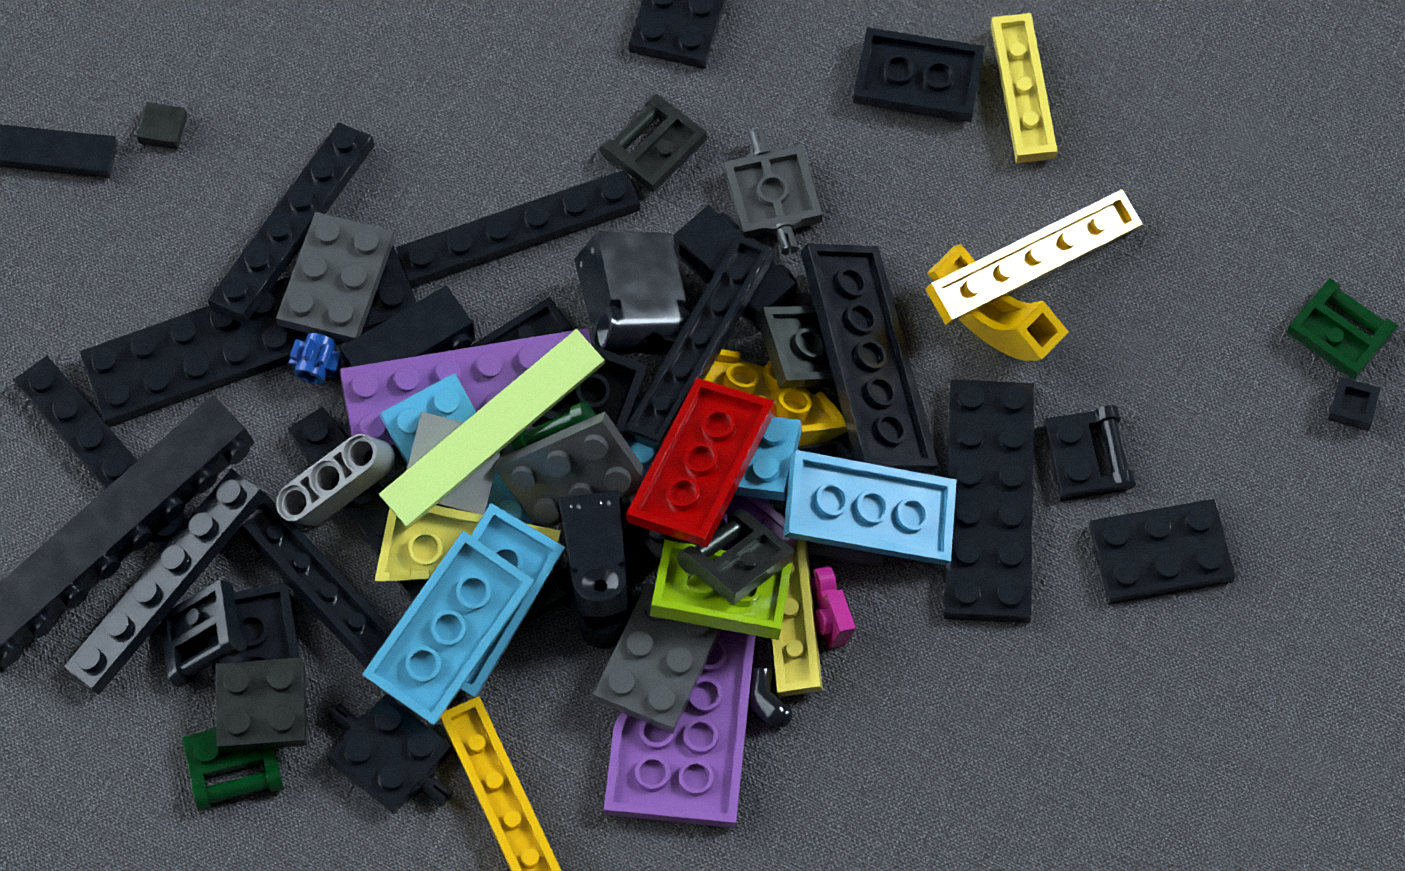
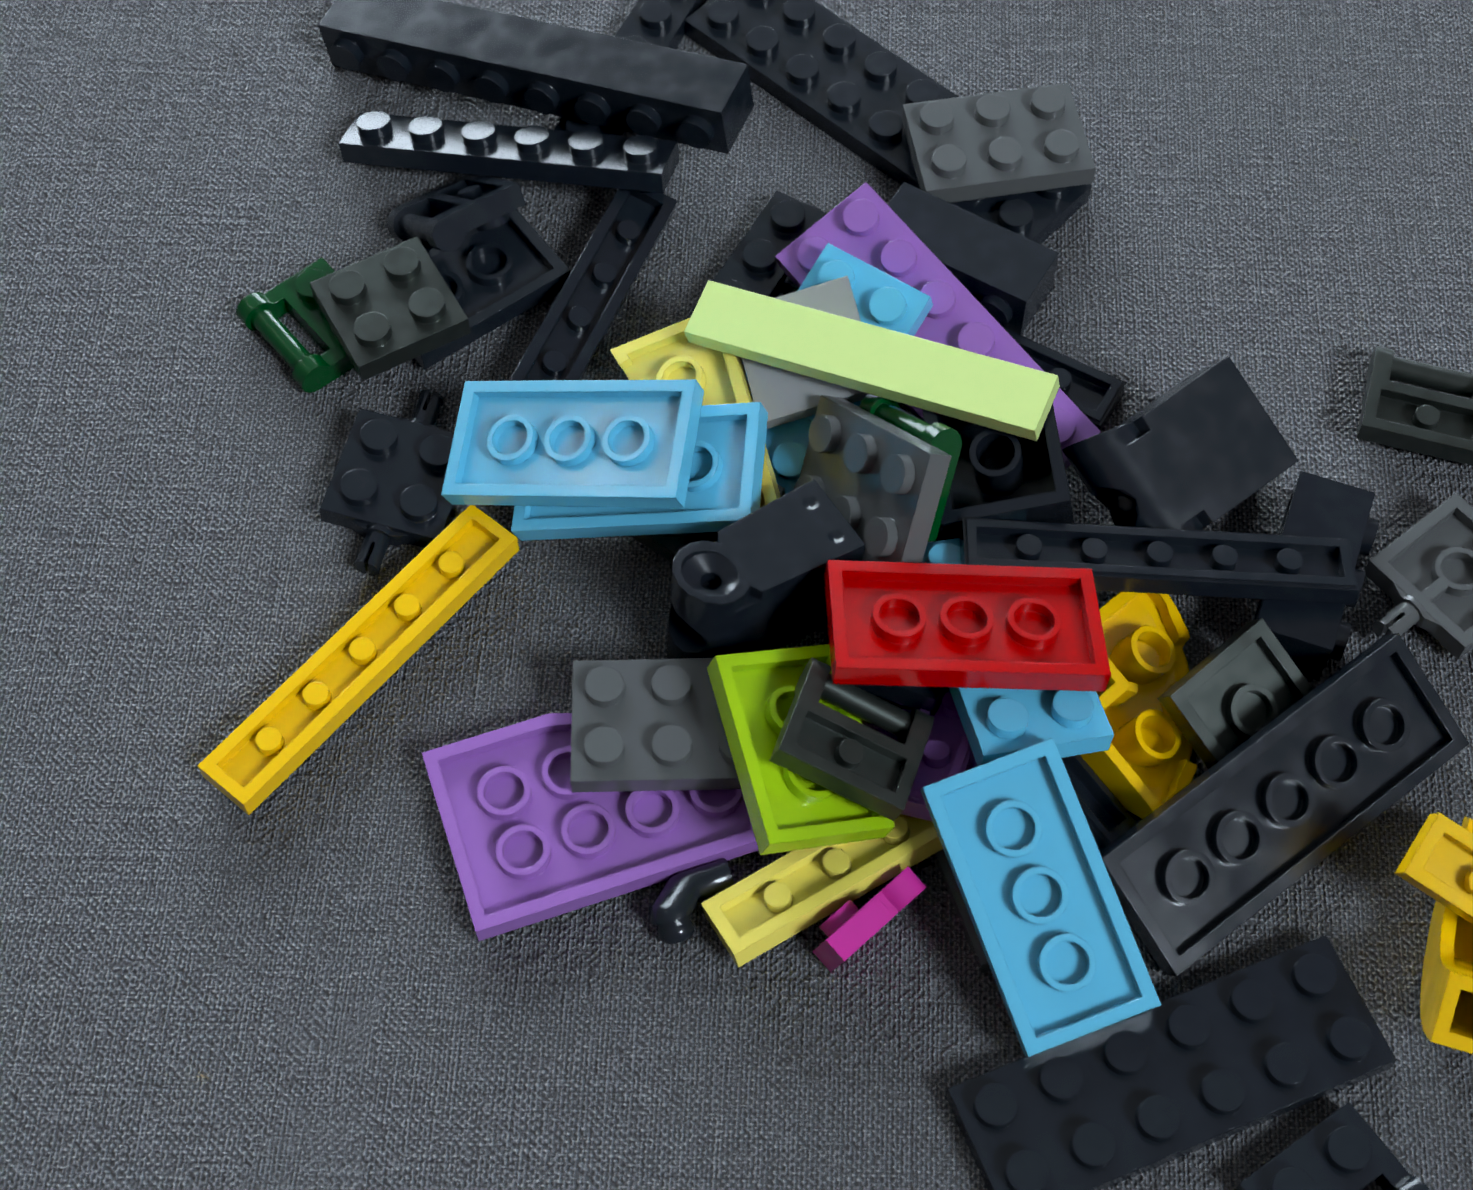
camera: 65 degrees right, 5 degrees down
(289, 223) = (1095, 81): black plate -> none
(315, 358) = (881, 167): blue gear -> none
(316, 481) = (722, 247): light grey beam -> none
(518, 228) = (1205, 315): black plate -> none

